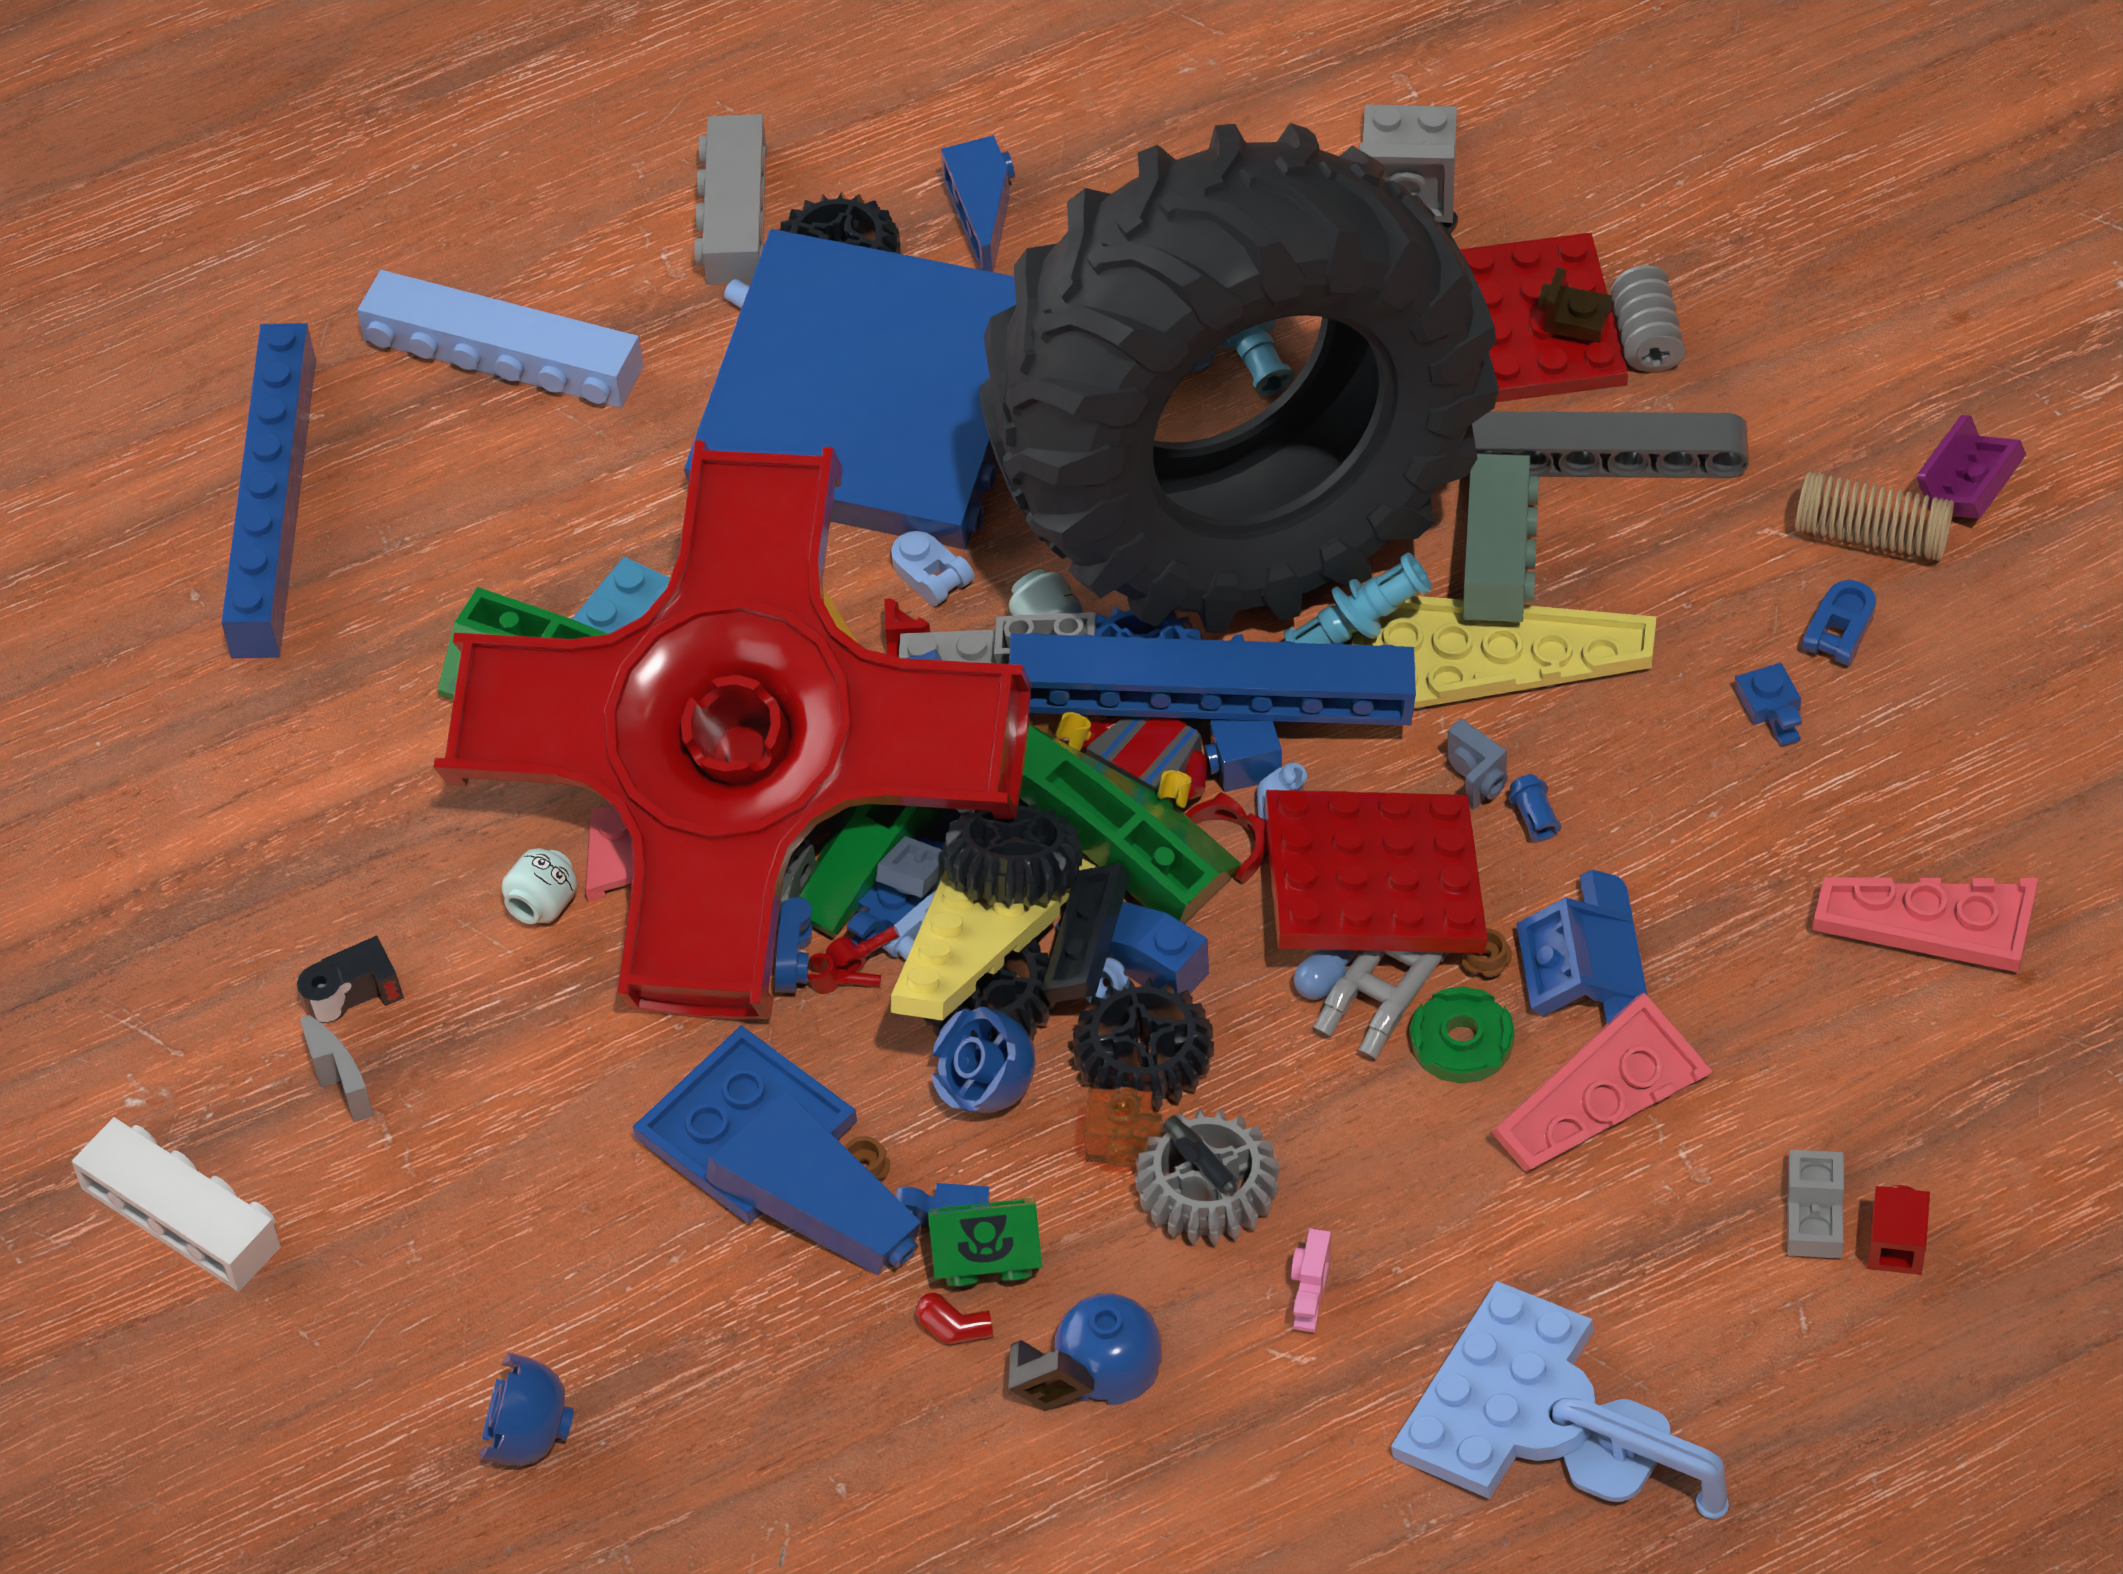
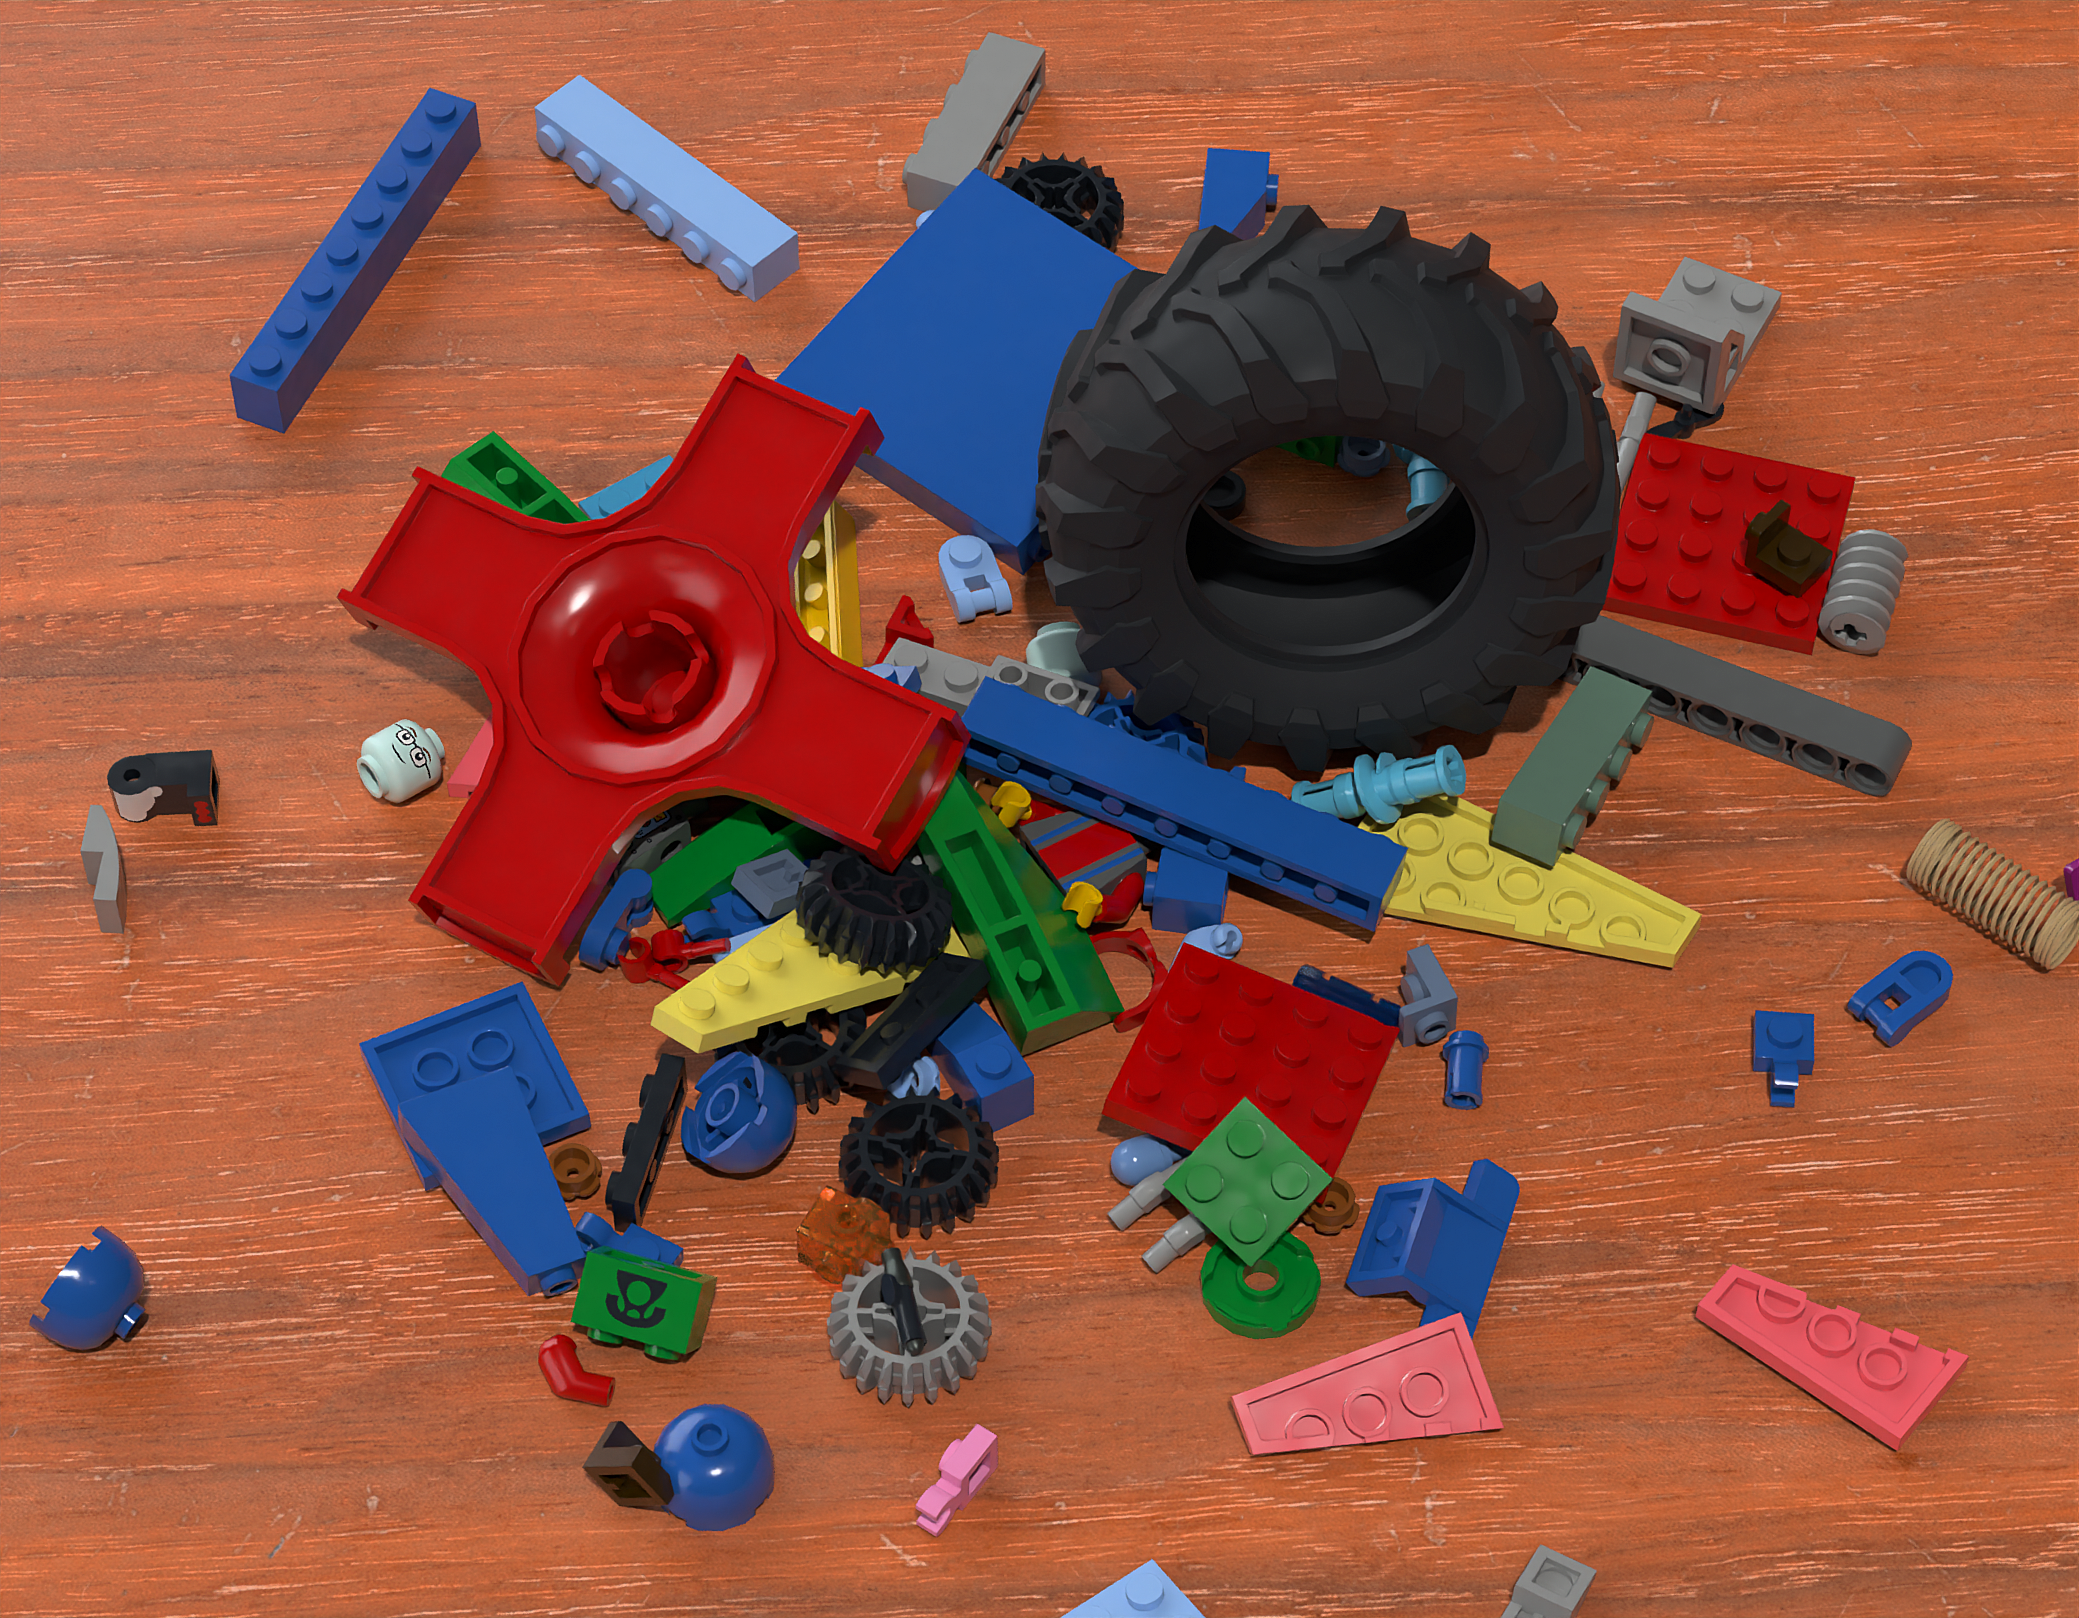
camera: 20 degrees right, 0 degrees up
(913, 1113) = (647, 1142): none -> black plate
(1411, 784) = (1346, 994): none -> clear blue axle
(1424, 956) = (1248, 1182): none -> green plate

